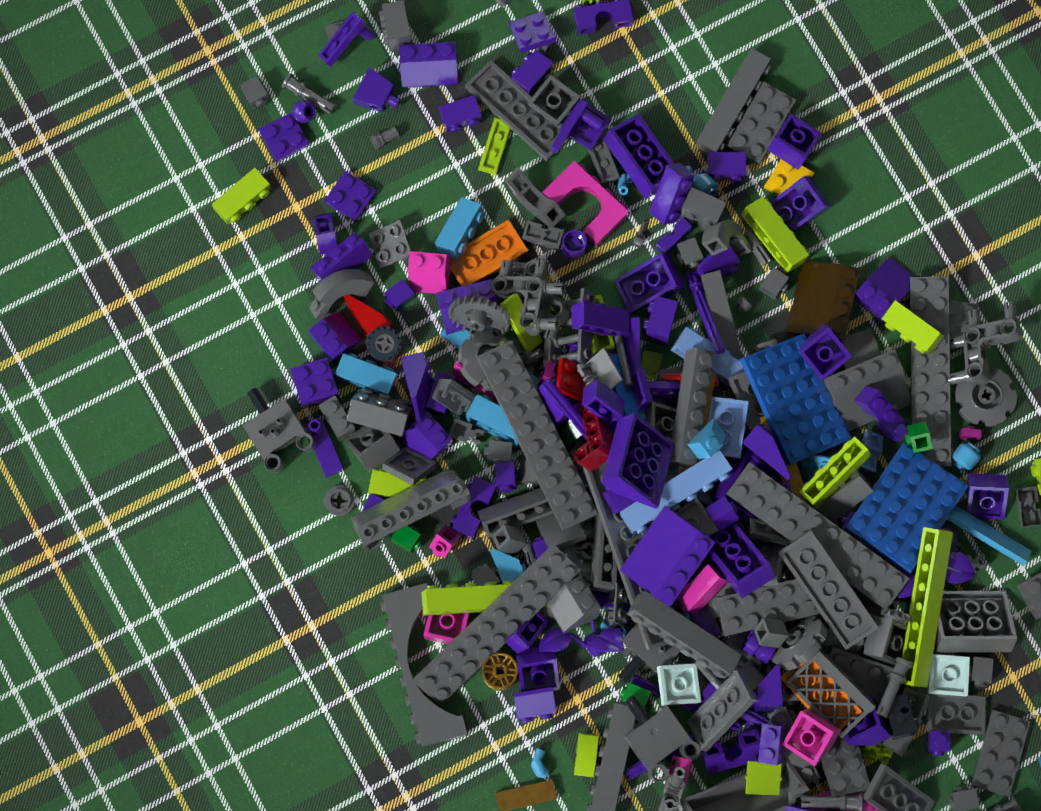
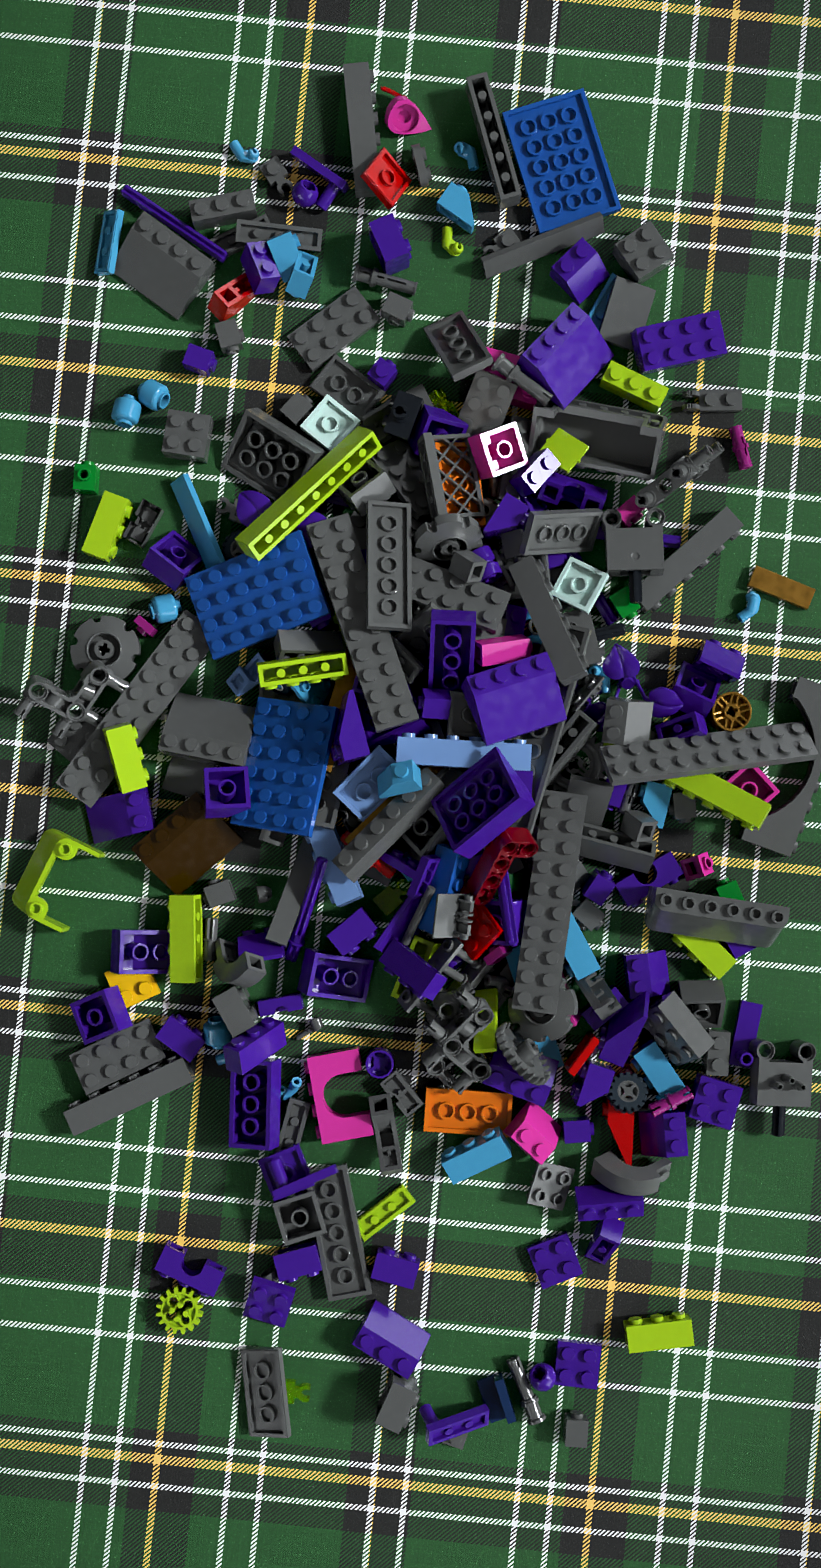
camera: 145 degrees left, 10 degrees up
(324, 76) = (496, 1398): none -> dark blue panel
(332, 494) = (775, 973): dark grey gear -> none
(348, 358) = (670, 1101): none -> magenta pin
(375, 92) = (461, 1347): dark purple torso -> none
(380, 139) = (488, 1296): dark grey pin -> none
(409, 466) = (682, 959): dark grey plate -> none
(412, 335) = (592, 1083): none -> dark purple slope
(435, 349) = (581, 1053): none -> red tile
(462, 432) = (607, 957): dark grey plate -> none
(586, 755) = (703, 584): lime slope -> none
(603, 402) = (471, 885): dark purple brick -> none
(689, 254) = (278, 977): dark grey brick -> none
(888, 419) = (212, 698): dark purple arch -> none
(896, 615) = (343, 500): dark grey gear -> none
(897, 678) = (383, 446): dark grey pin -> none
(916, 234) = (50, 846): none -> lime windscreen
(918, 437) = (196, 652): green brick -> none

